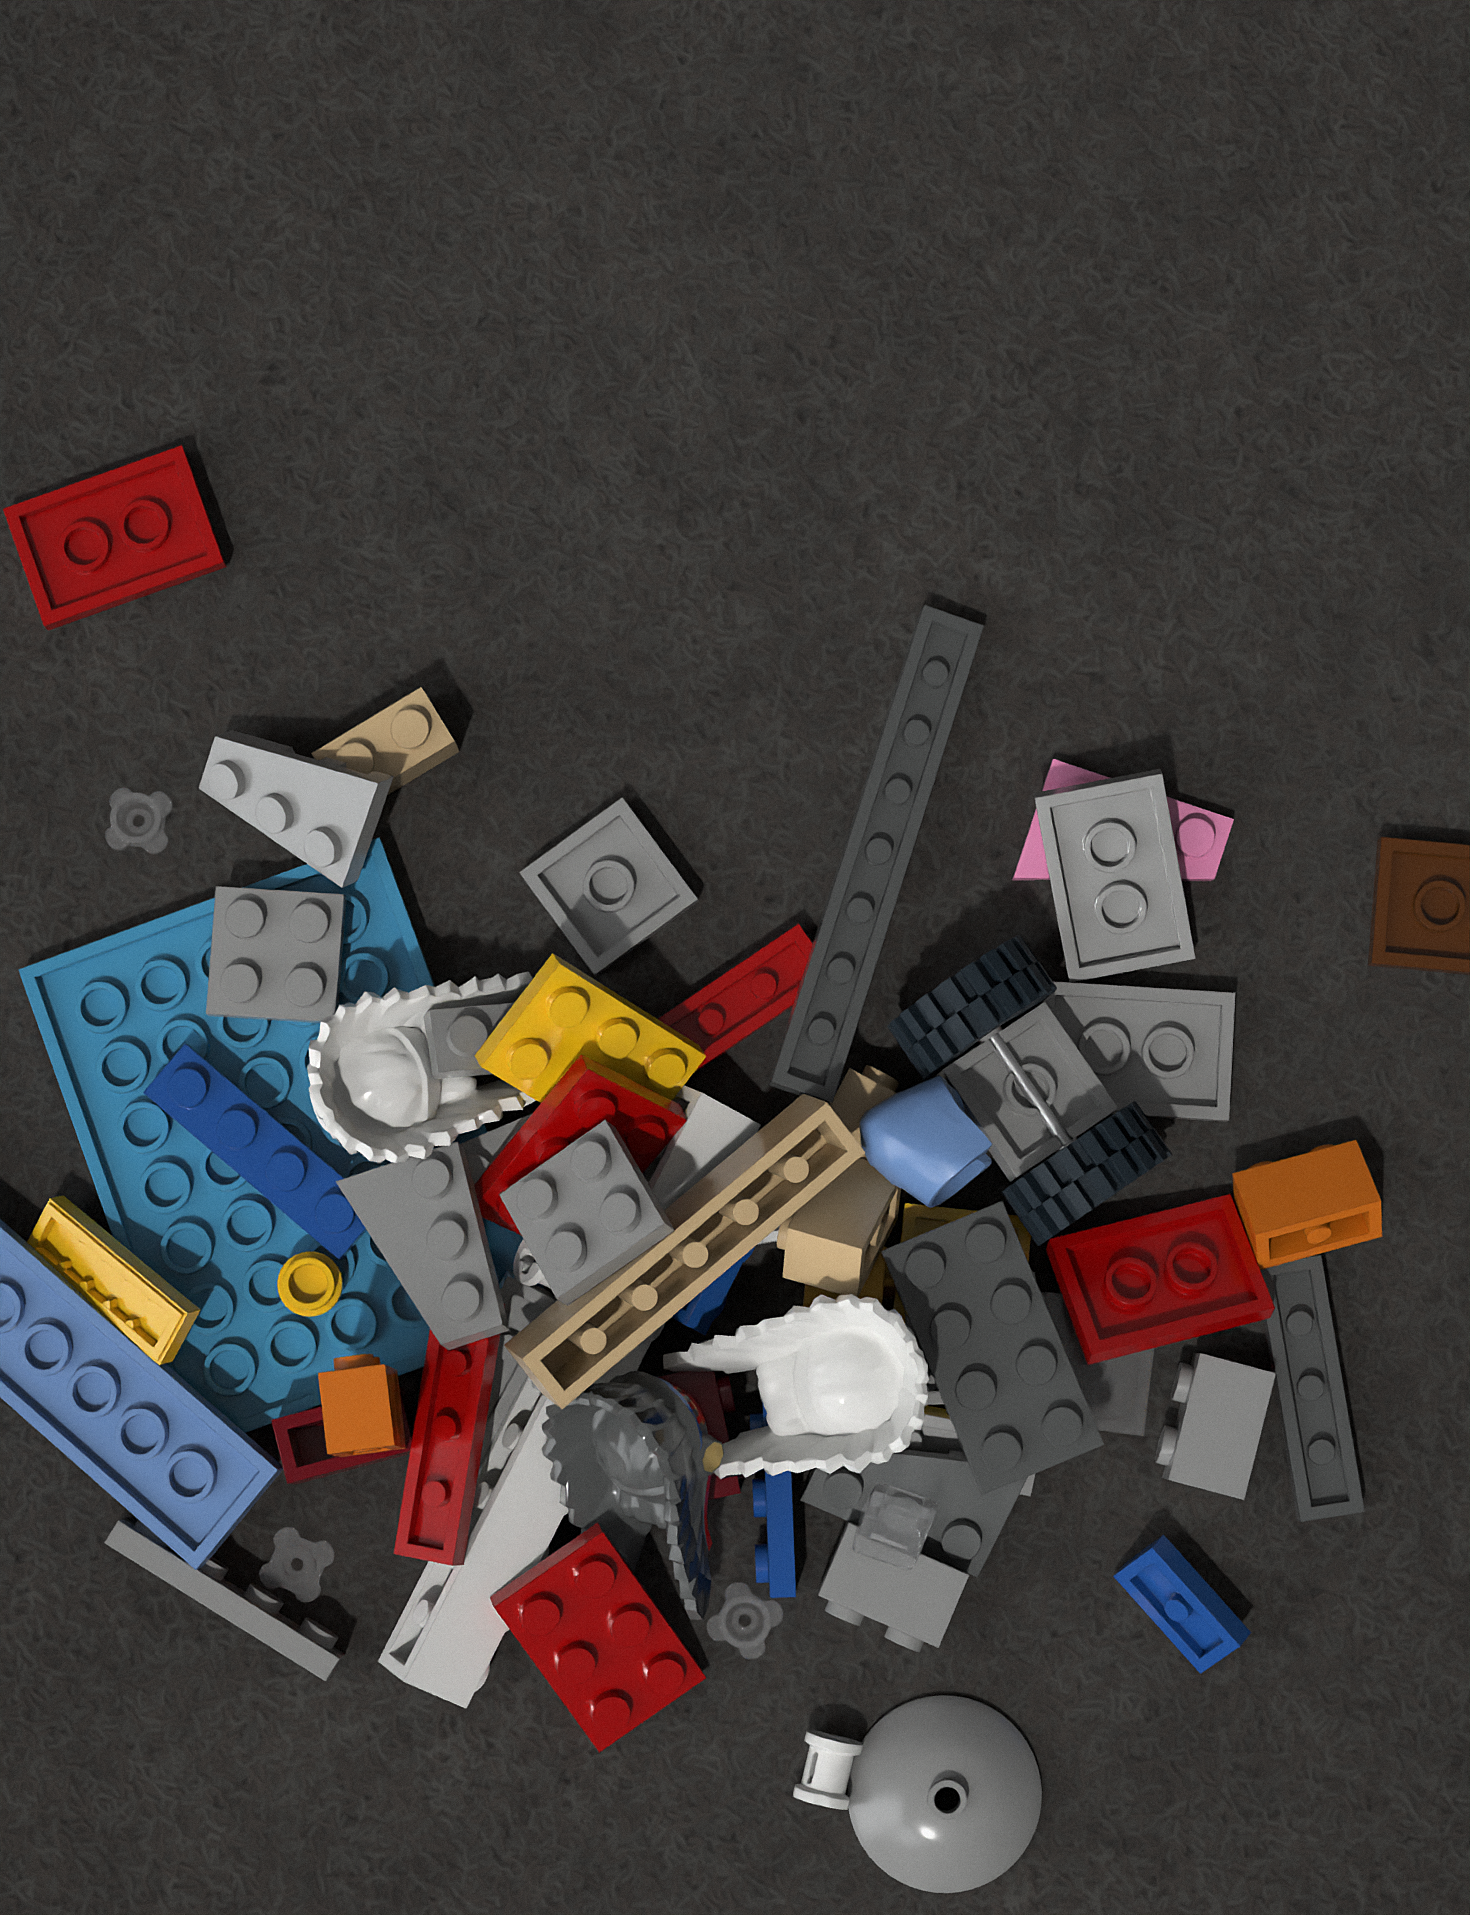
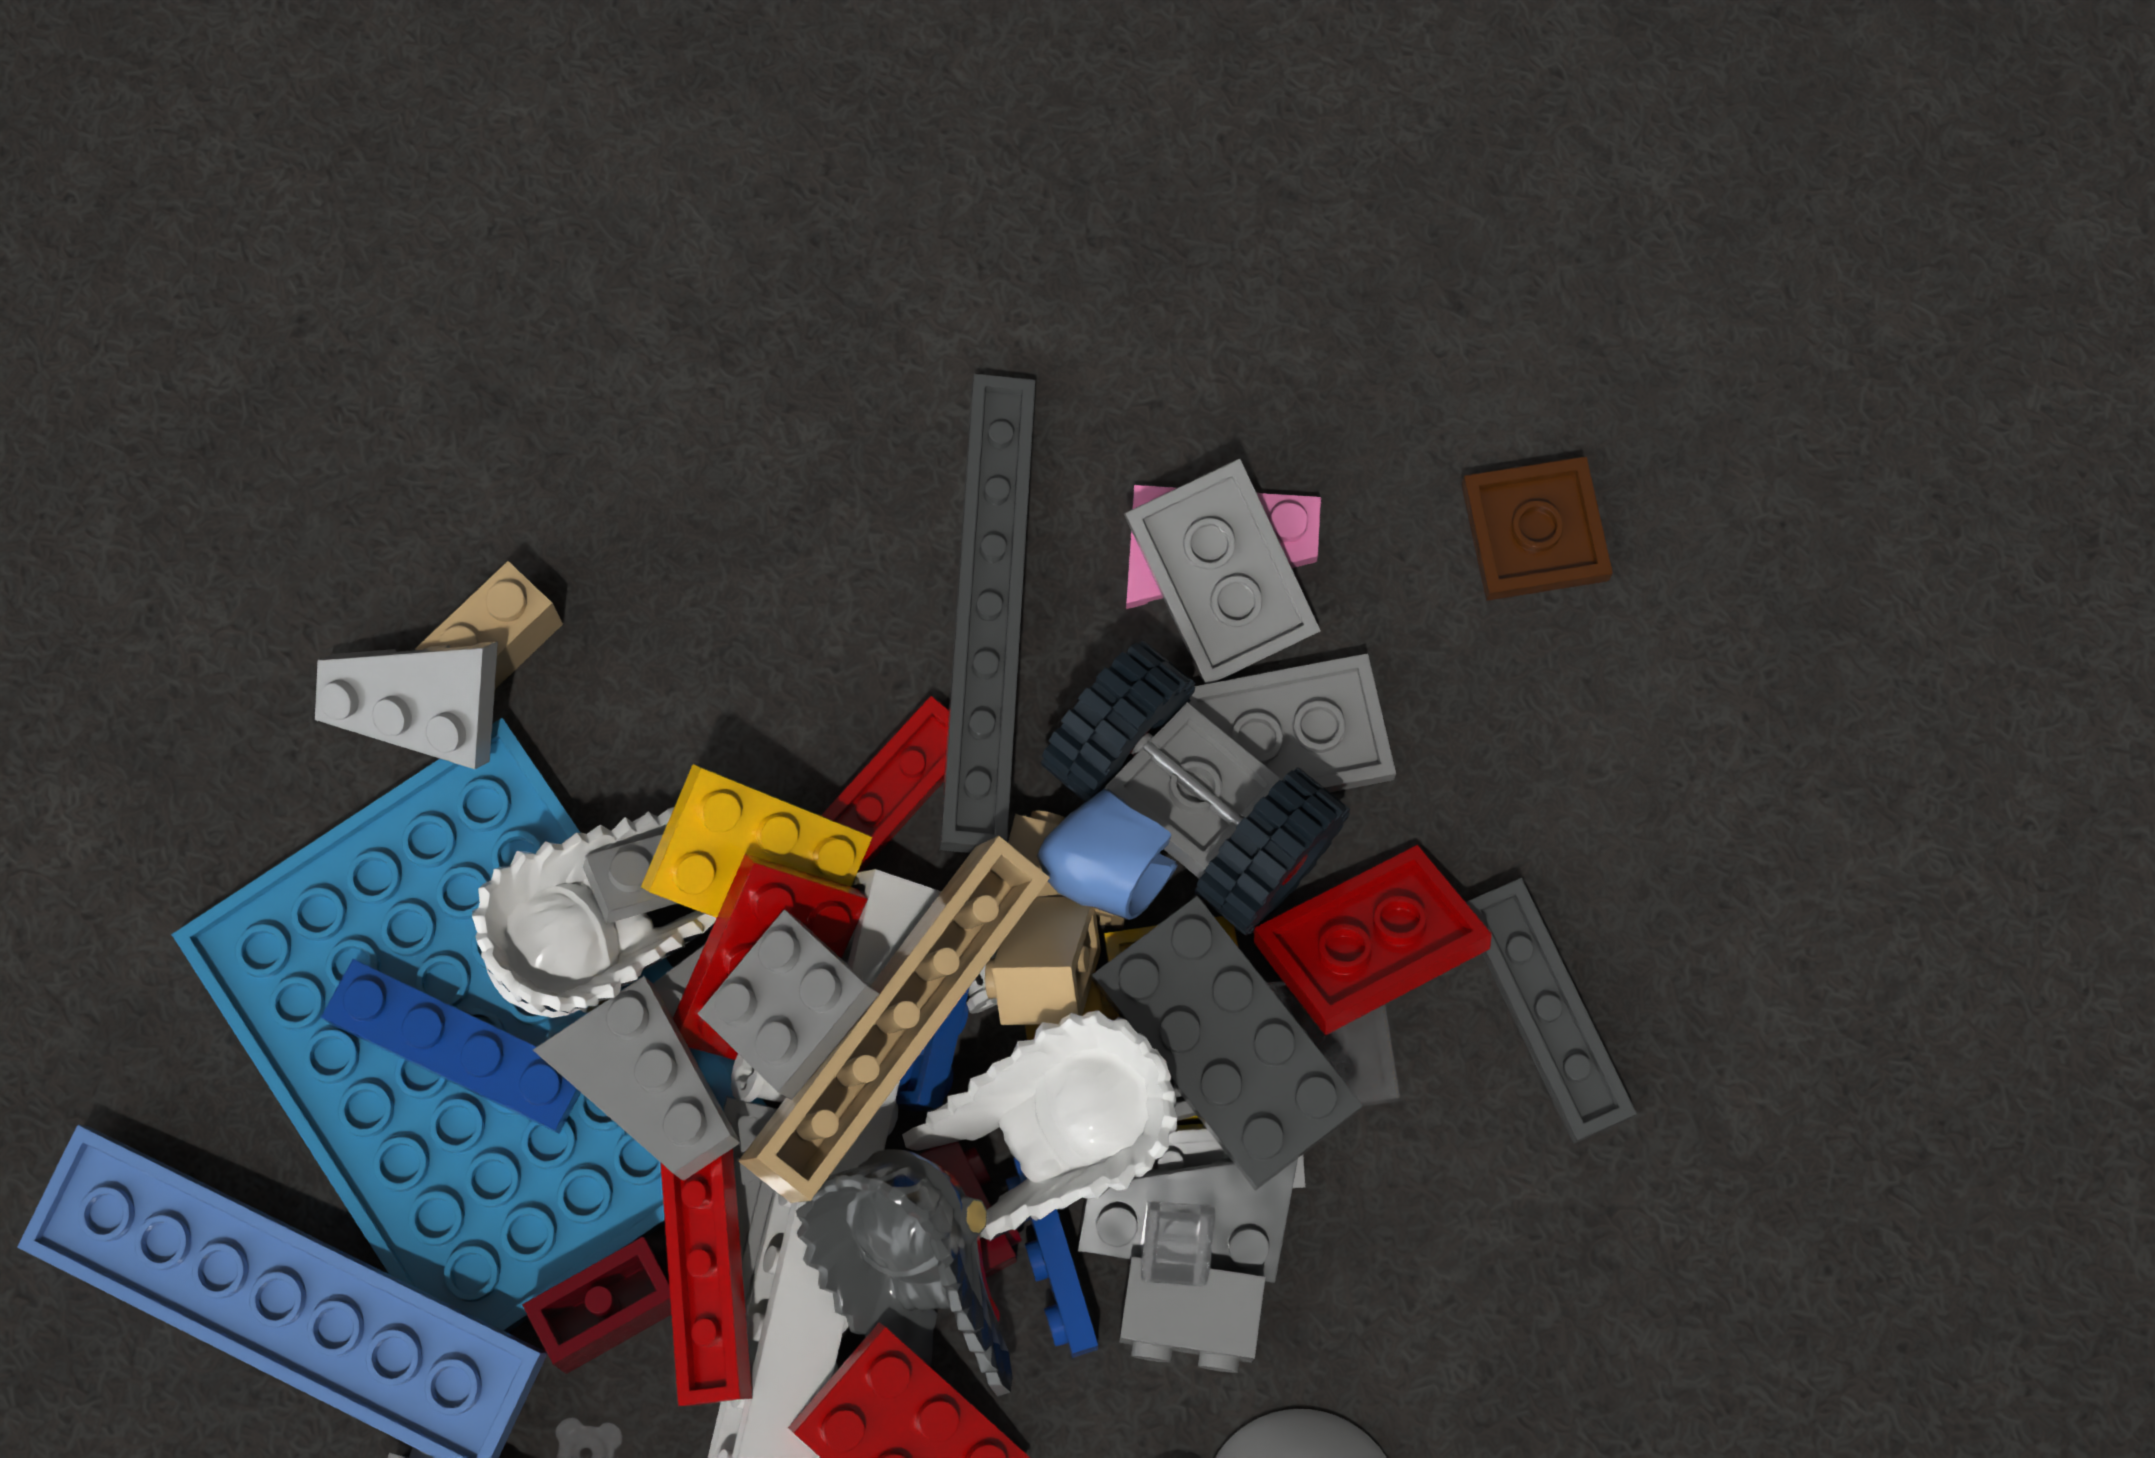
camera: 15 degrees left, 10 degrees down
(114, 538) = (180, 507): red plate -> none
(114, 1280) = (333, 1210): yellow plate -> none
(125, 808) = (247, 754): clear plate -> none
(275, 954) = (423, 851): light grey plate -> none
(310, 1284) = (532, 1163): yellow plate -> none
(361, 1407) = (607, 1257): orange brick -> none
(608, 887) = (738, 708): light grey plate -> none
(750, 1638) = (1043, 1373): clear plate -> none
(1182, 1604) = (1485, 1254): blue plate -> none
(1215, 1424) = (1467, 1068): light grey brick -> none
(1308, 1204) = (1495, 831): orange brick -> none

